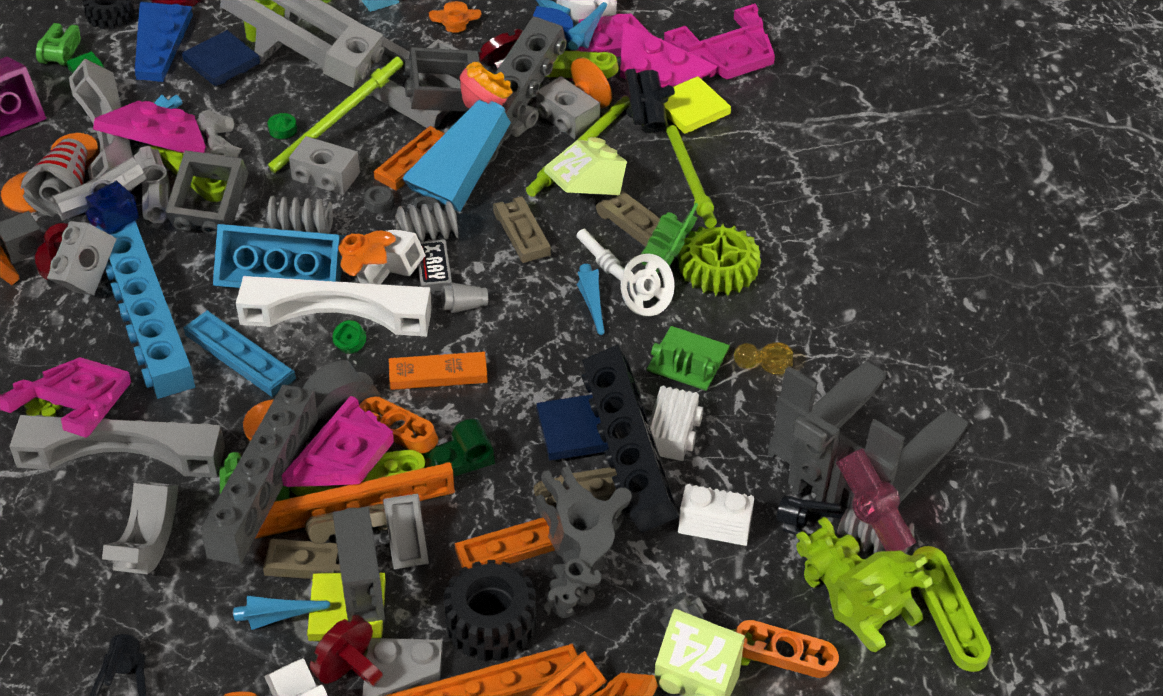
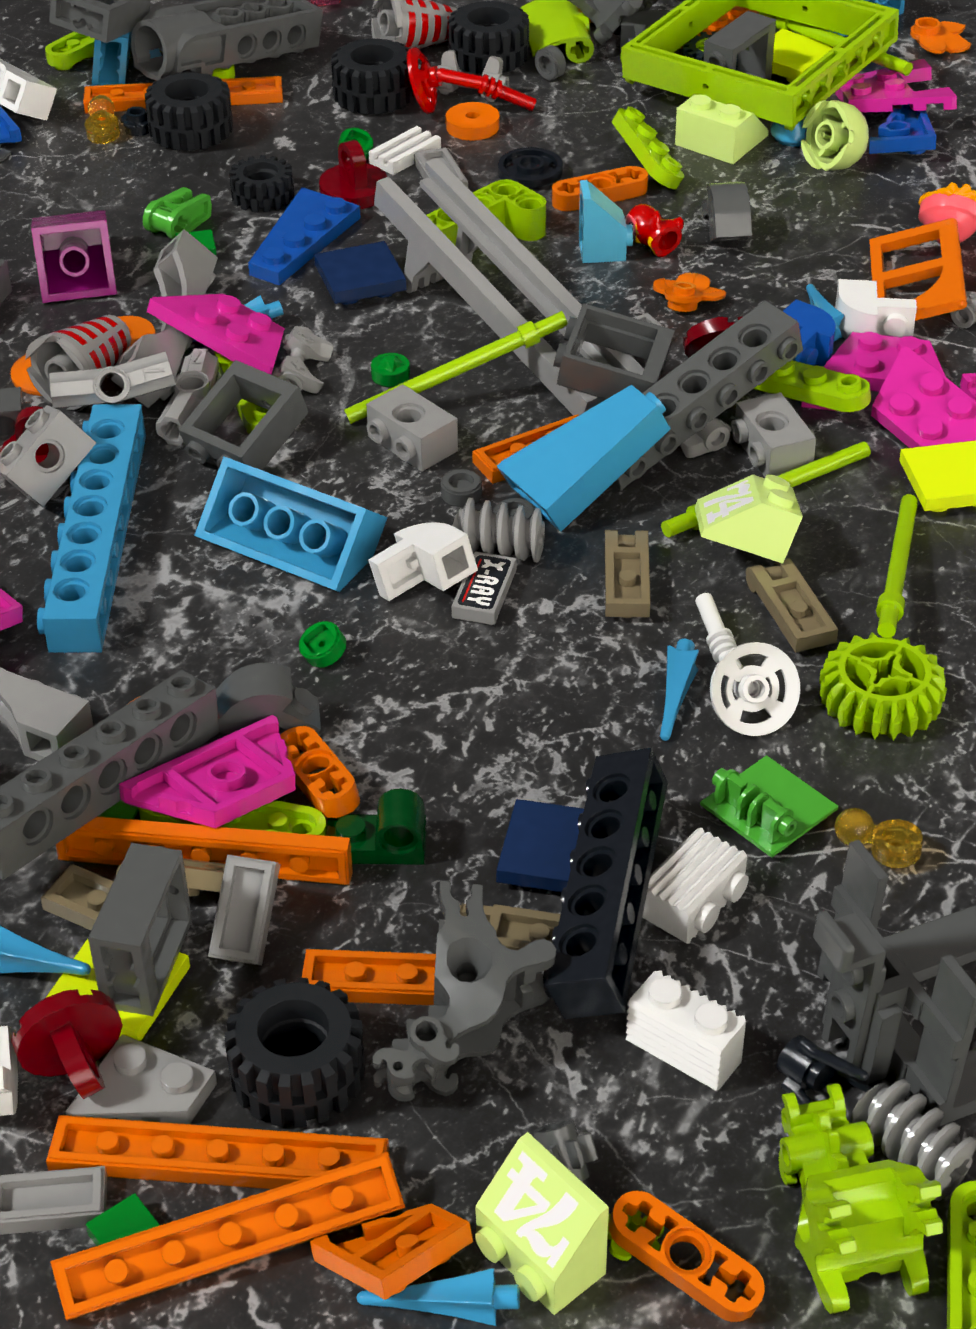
camera: 25 degrees right, 5 degrees down
(111, 207) = (109, 405): clear blue brick -> none
(239, 353) = (177, 623): dark azure tile -> none
(274, 300) = (252, 572): white arch -> none
(298, 217) = (344, 477): light grey piece -> none
(353, 54) = (506, 295): light grey brick -> none
(364, 249) = (389, 537): orange plate -> none
(437, 370) = (414, 720): orange tile -> none
(462, 297) = (498, 636): light grey cone -> none
(483, 85) = (652, 370): hair -> none
(583, 32) = (845, 346): dark azure piece -> none
(591, 80) = (818, 410): orange dish -> none
(647, 100) = (884, 450): black pin -> none
(669, 236) = (820, 630): bright green hinge -> none
(875, 501) = (914, 1082): clear pink piece -> none

